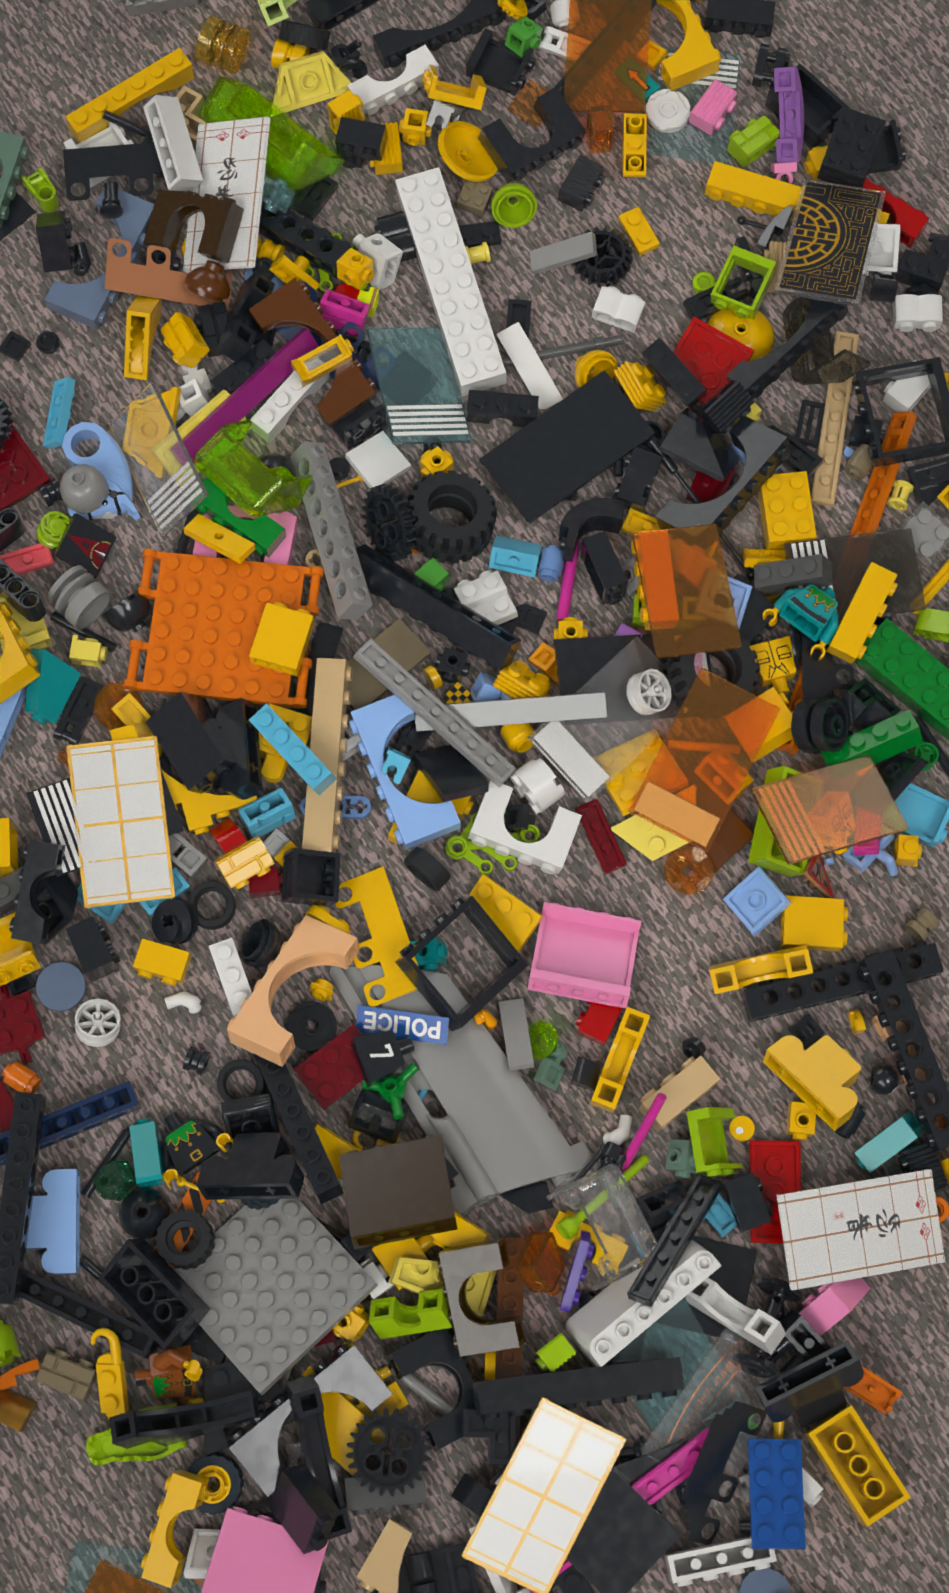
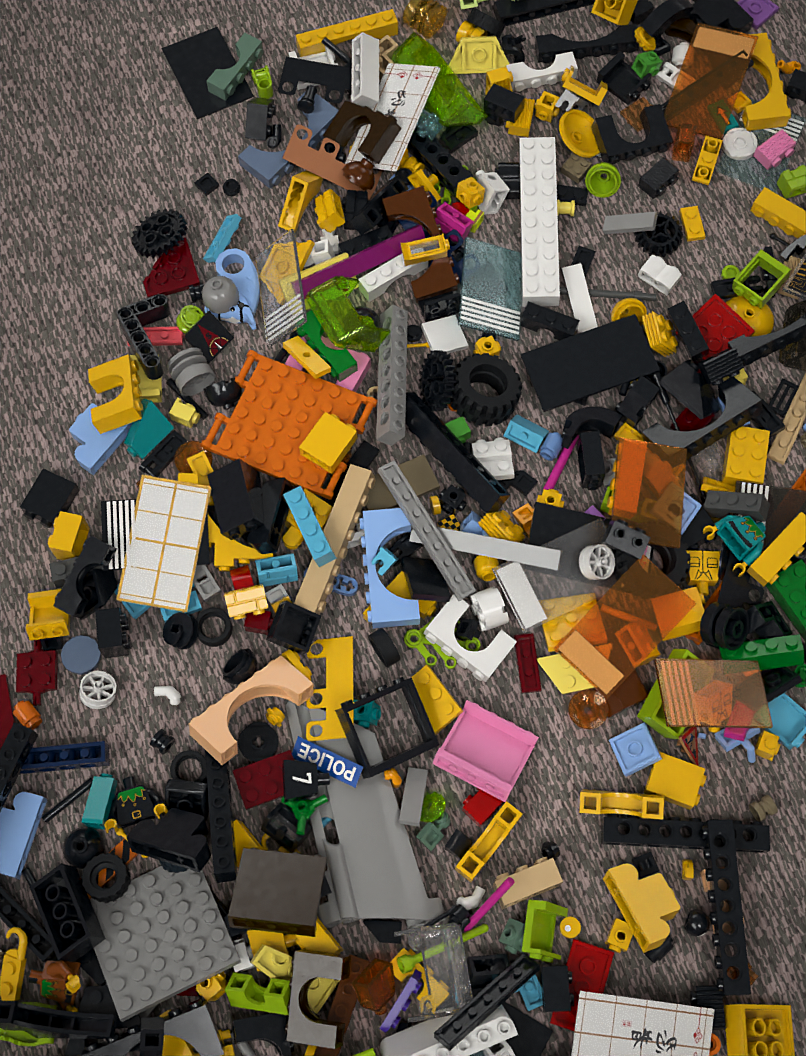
camera: 20 degrees right, 5 degrees down
(115, 1180) = (68, 815): clear green brick -> none
(162, 962) = (161, 658): yellow brick -> none
(231, 973) = (210, 681): white arch -> none
(676, 656) = (625, 539): none -> black brick
(889, 1142) = (686, 976): teal slope -> none

